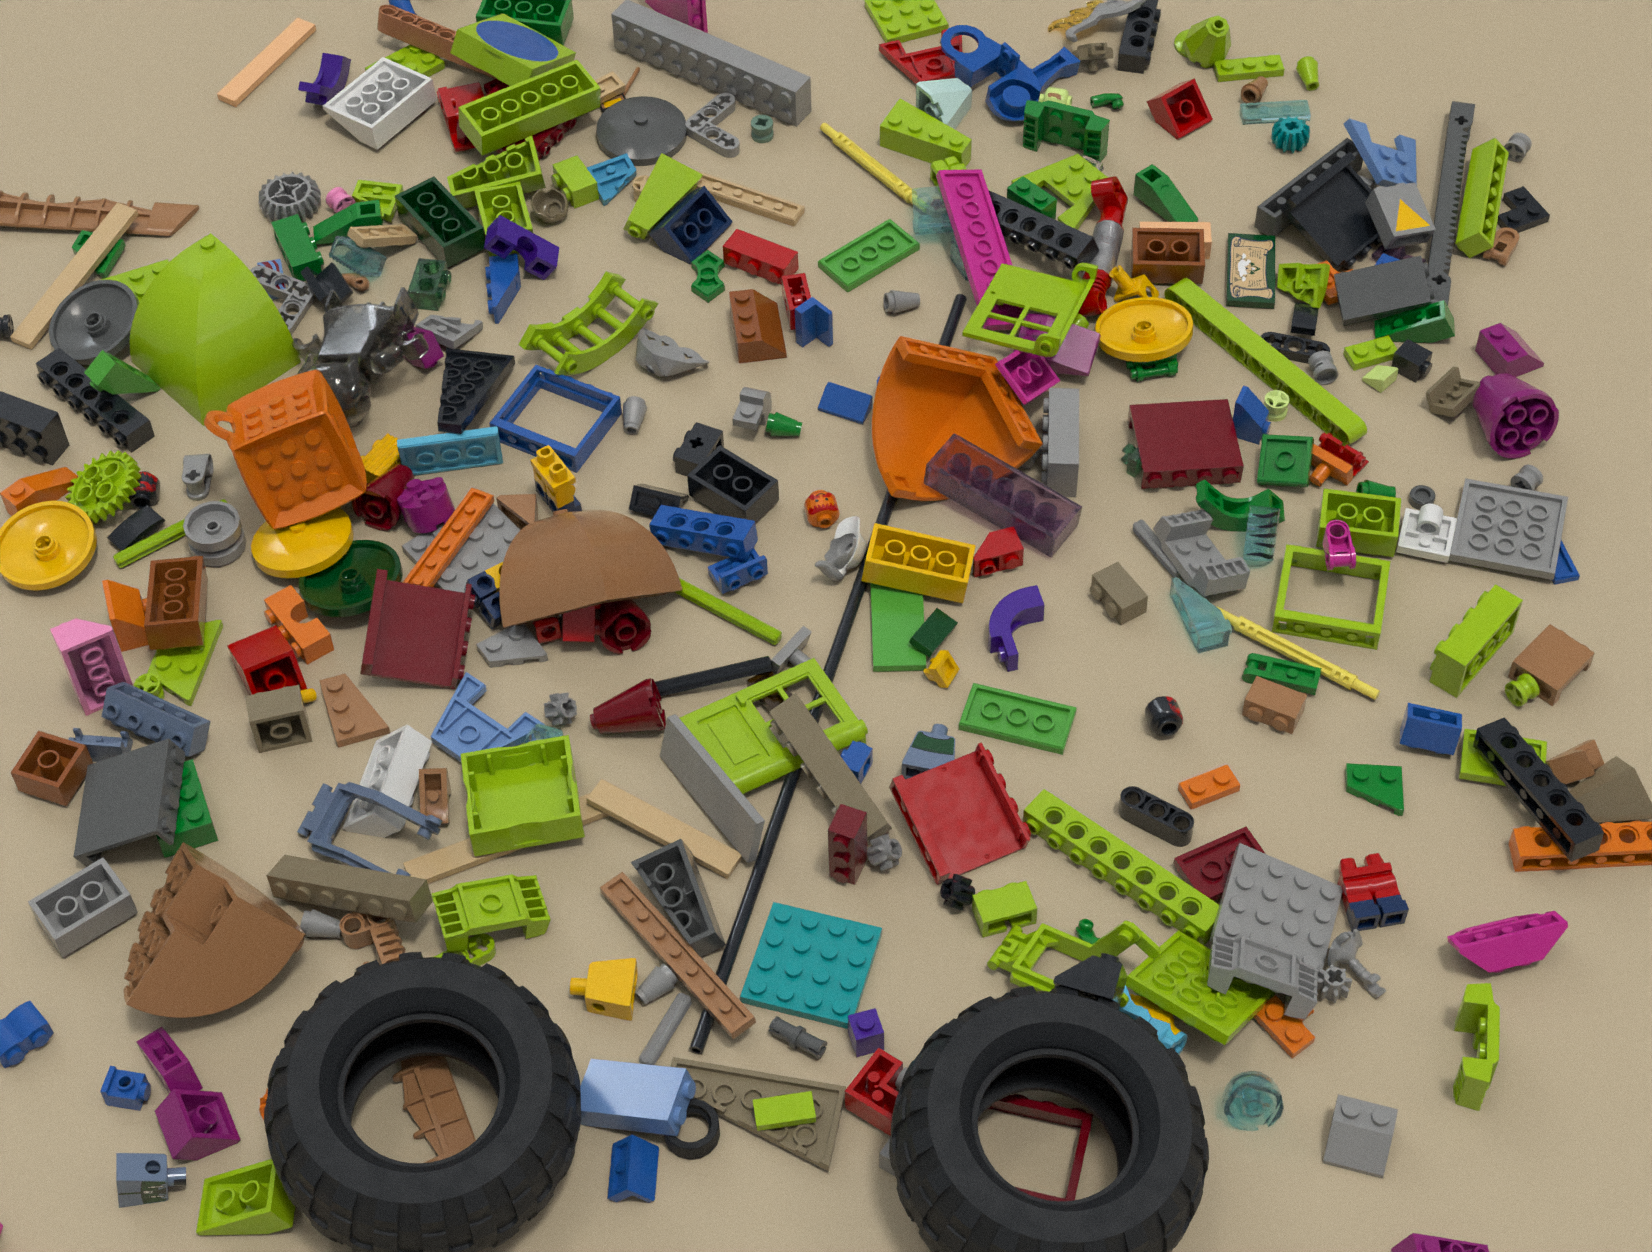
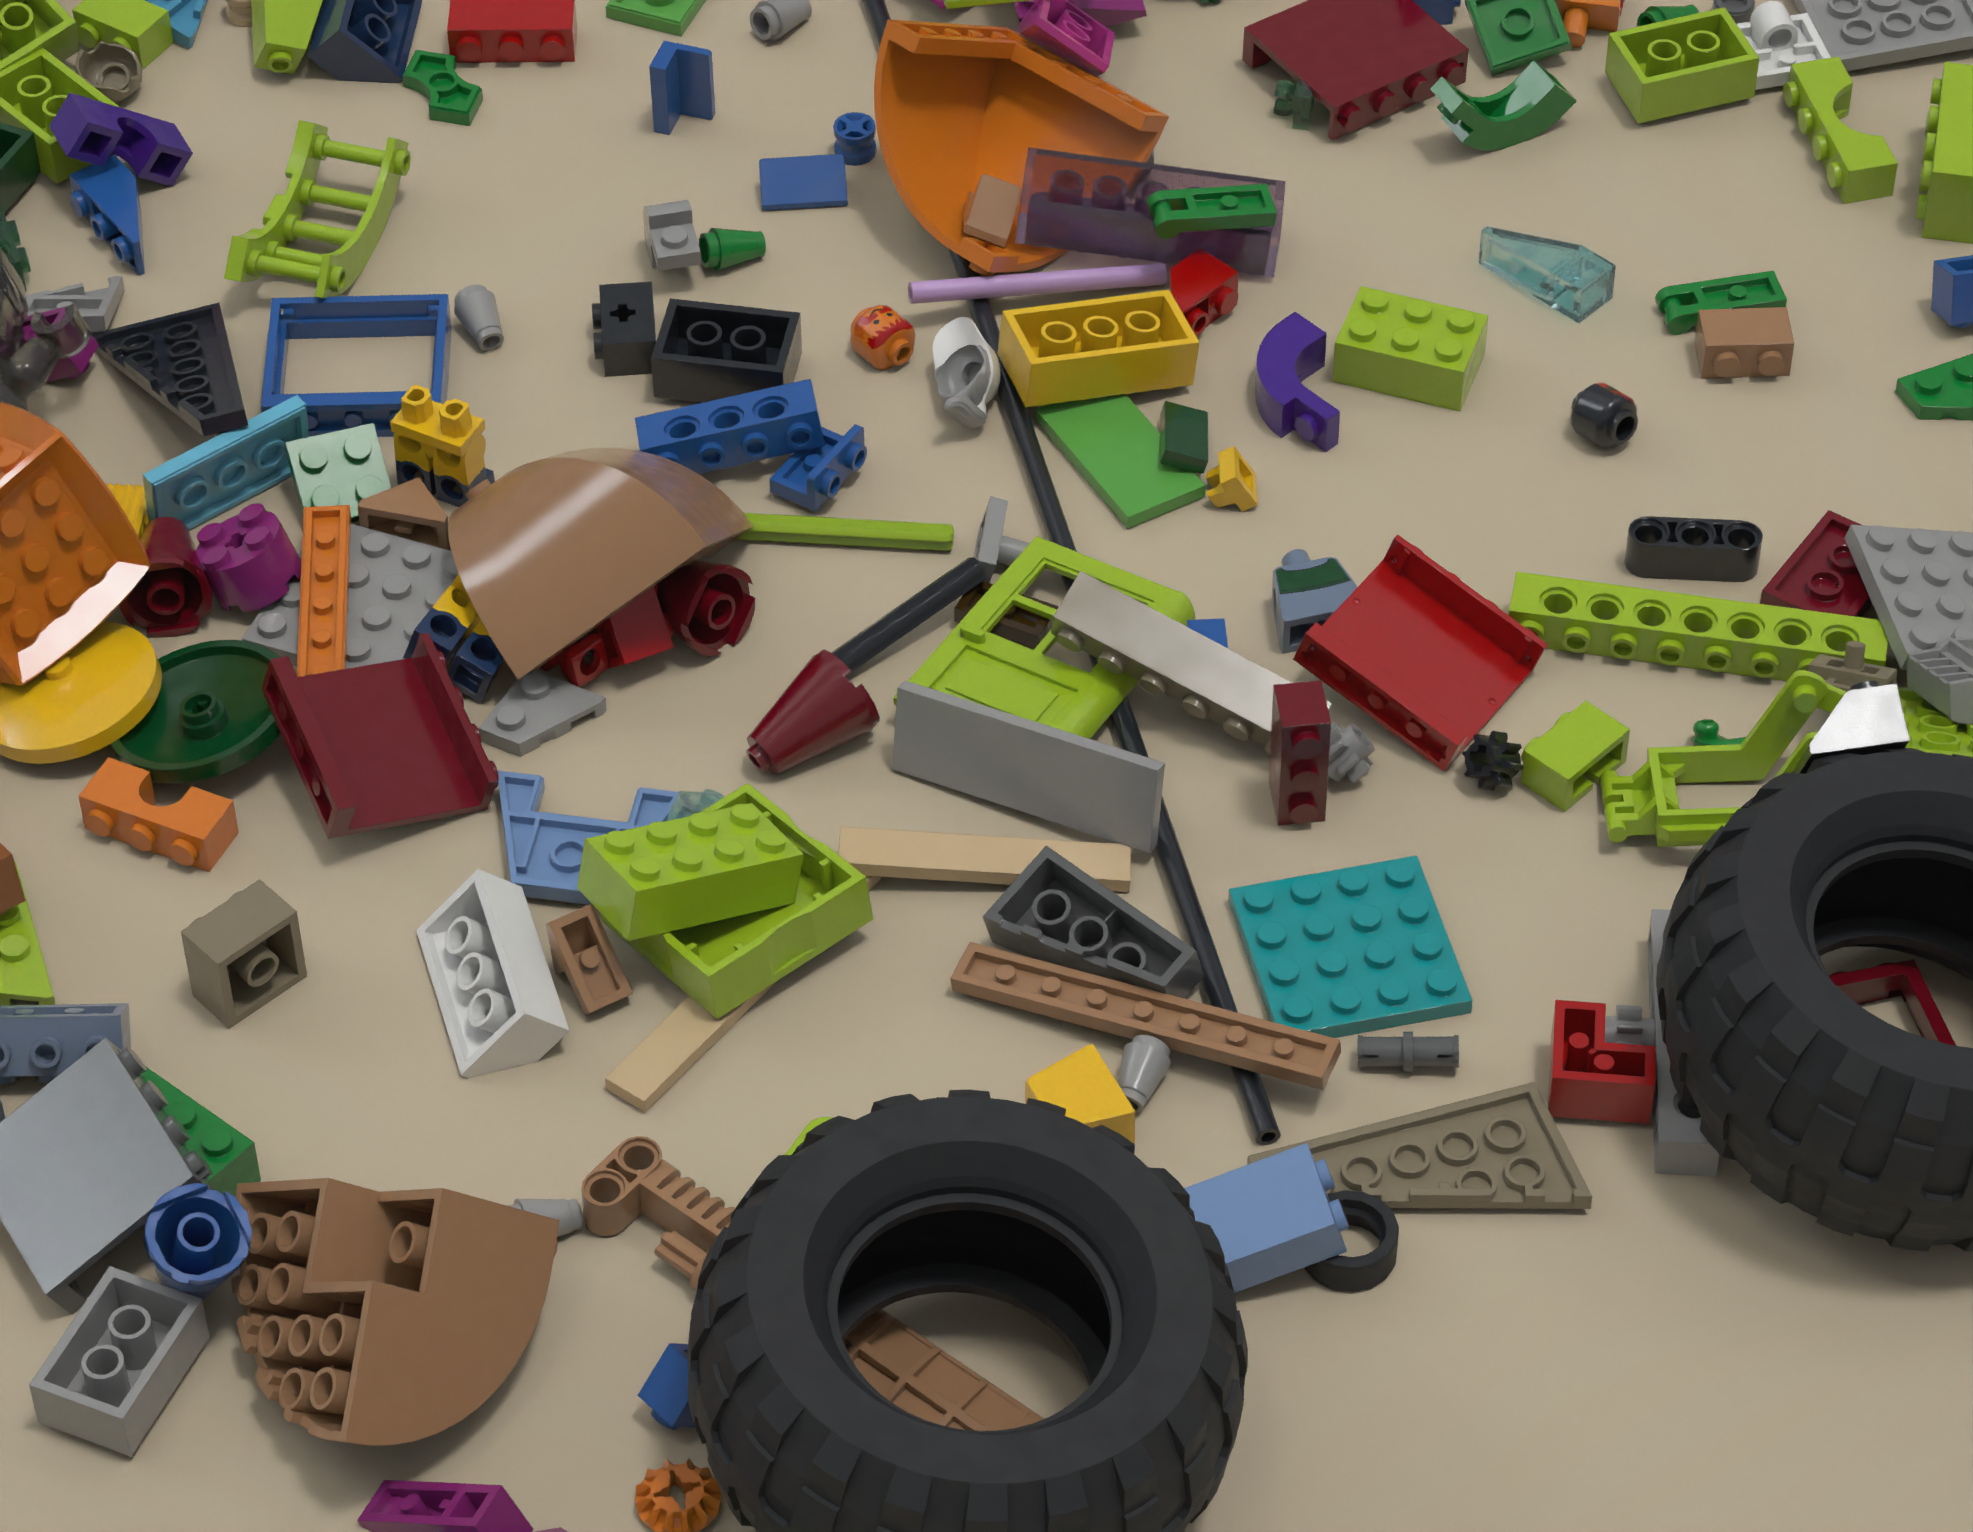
camera: 30 degrees left, 5 degrees down
(137, 863) = (197, 1238): none -> blue cone
(266, 662) = (151, 889): red slope -> none
(332, 808) = (434, 1049): sand blue piece -> none
(350, 712) = (343, 908): medium nougat wing -> none
(350, 888) = (570, 1133): dark tan brick -> none
(490, 907) = (804, 1072): lime plate -> none
(502, 772) = (689, 871): none -> lime brick
(503, 473) = (338, 468): none -> plate
(560, 709) = (692, 761): light grey gear -> none
(633, 1169) = (1300, 1335): blue panel -> none
(649, 498) = (608, 422): black panel -> none
(664, 359) = (467, 224): light grey piece -> none
(665, 1029) = (1200, 1124): light grey axle -> none
(756, 326) = (577, 130): dark orange slope -> none
(784, 1110) = (1474, 1150): lime tile -> none
(794, 293) = (619, 65): red brick -> none
(865, 1032) = (1506, 999): dark purple brick -> none
(913, 462) = (991, 210): none -> medium nougat slope
(919, 510) = (1037, 283): none -> lavender piece
(1017, 718) = (1402, 500): bright green tile -> none
(1023, 508) = (1211, 209): none -> green plate
(1061, 441) = (1202, 123): light grey brick -> none
(1088, 631) = (1410, 348): none -> lime brick
(1118, 593) = (1415, 274): dark tan brick -> none
(1153, 543) = (1421, 207): light grey axle -> none
(1173, 934) = (1851, 669): none -> dark tan piece
(1195, 555) = (1482, 194): light grey plate -> none
(1209, 786) = (1731, 484): orange plate -> none
(1261, 533) = (1558, 127): clear light blue brick -> none
(1299, 654) = (1712, 267): light yellow axle -> none
(1325, 627) = (1721, 220): lime window -> none
(1338, 546) = (1689, 98): dark pink piece -> none
(1420, 620) = (1854, 161): none -> lime arch

